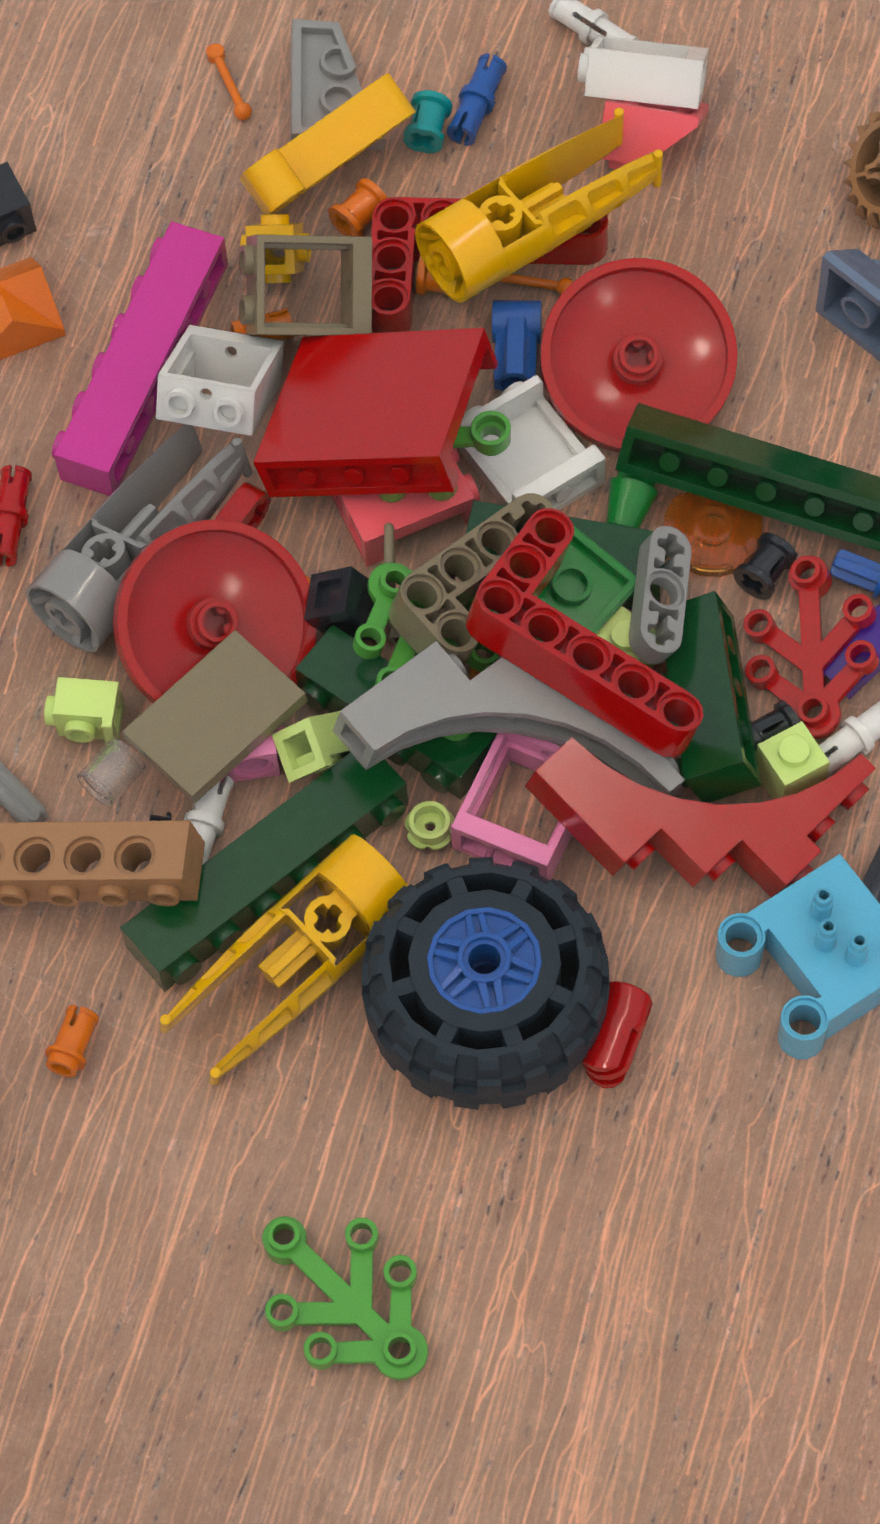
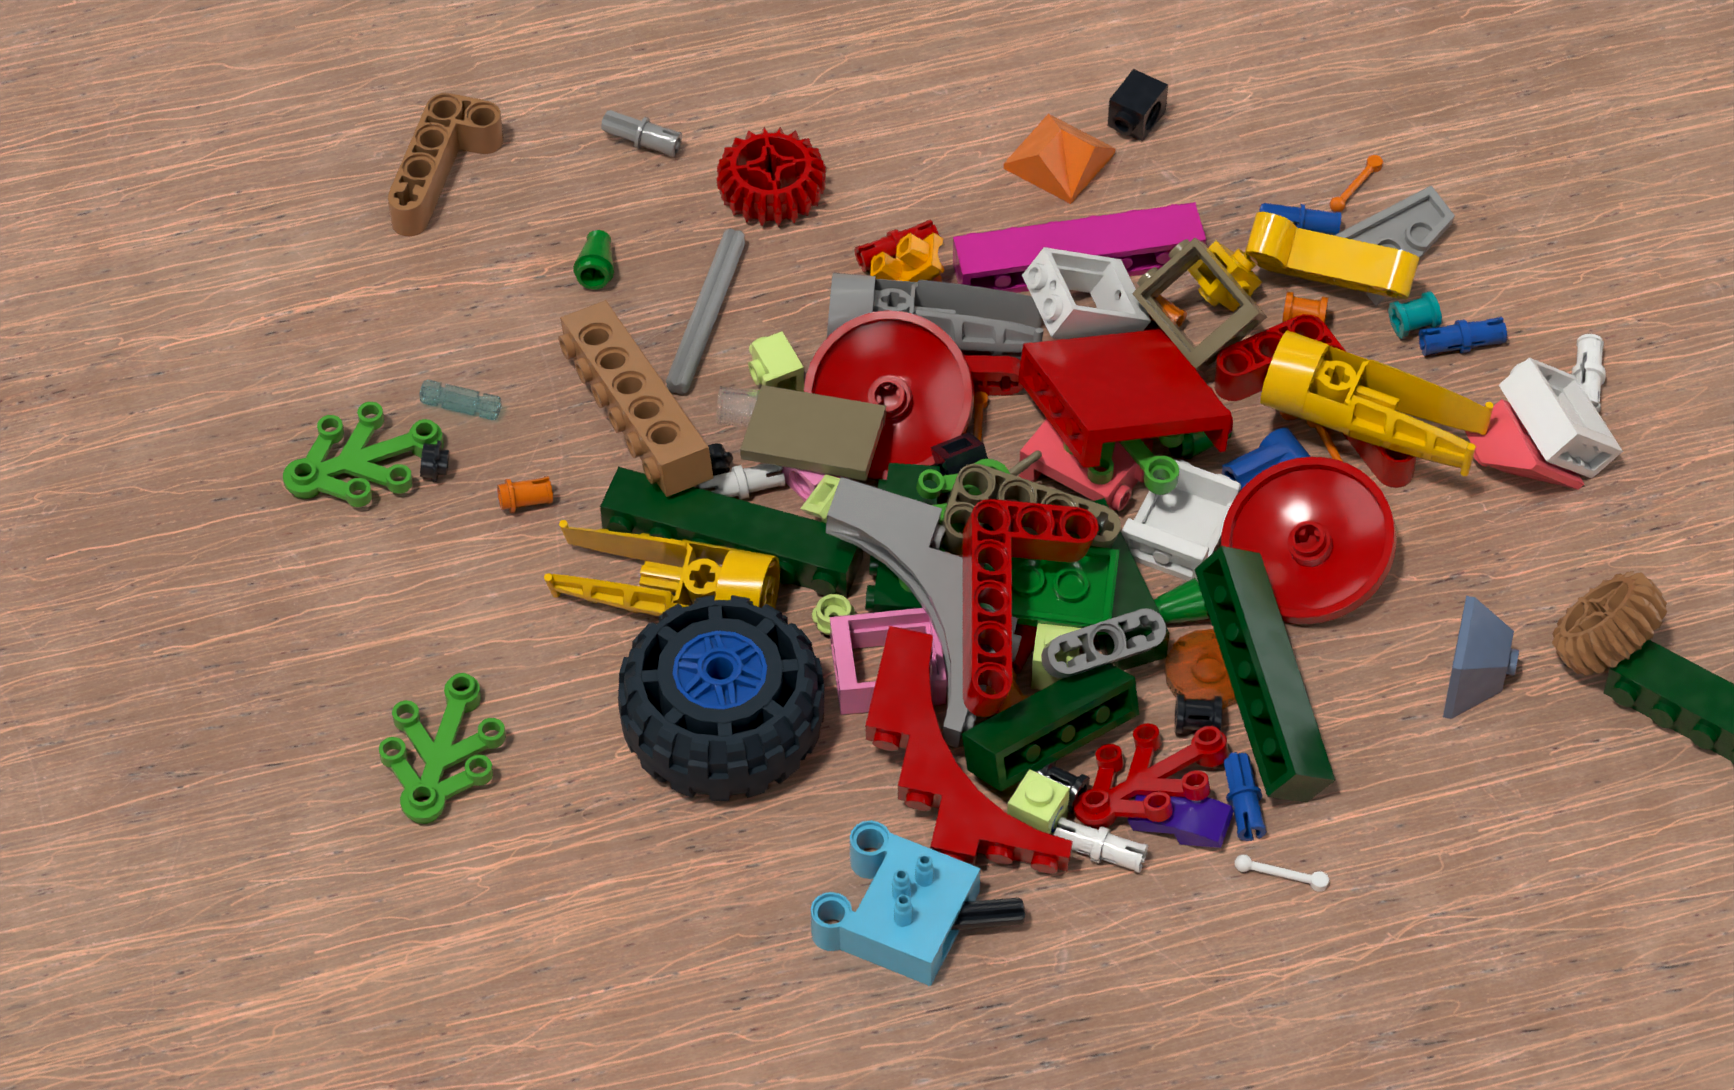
camera: 55 degrees right, 10 degrees down
(59, 513) = (913, 262): none -> light orange hips
(244, 149) = (1307, 219): none -> blue axle
(619, 1035) = (746, 807): red arm -> none

